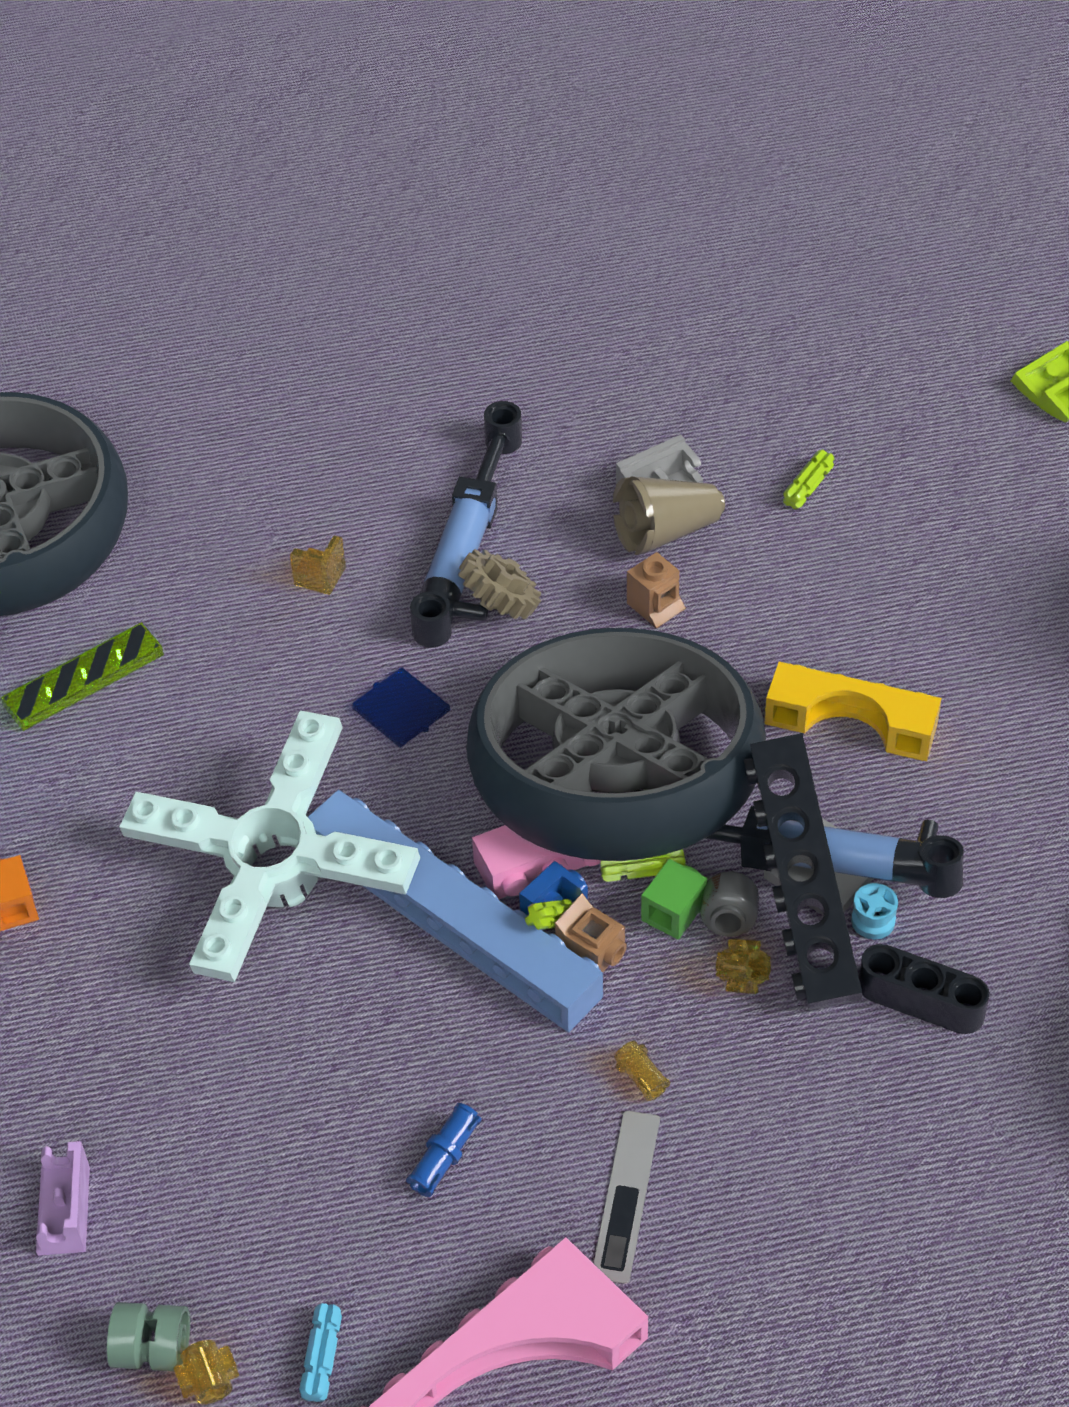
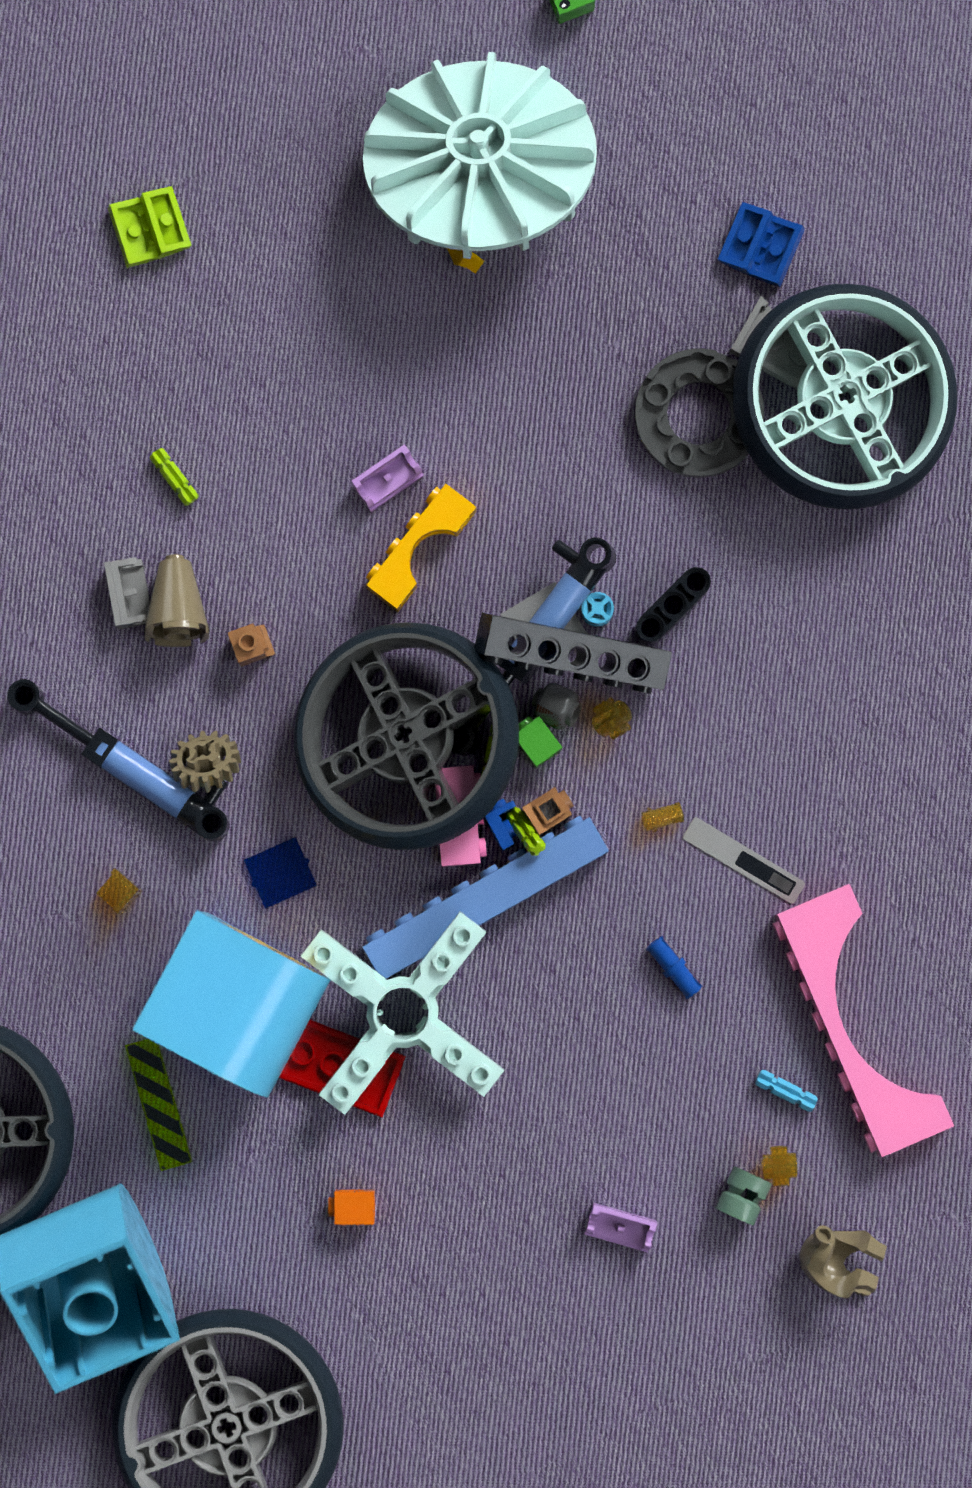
camera: 70 degrees left, 35 degrees up
(175, 871) = (320, 1055): none -> red tile
(216, 649) = (231, 1004): none -> medium azure brick
(916, 654) = (387, 478): none -> lavender hinge

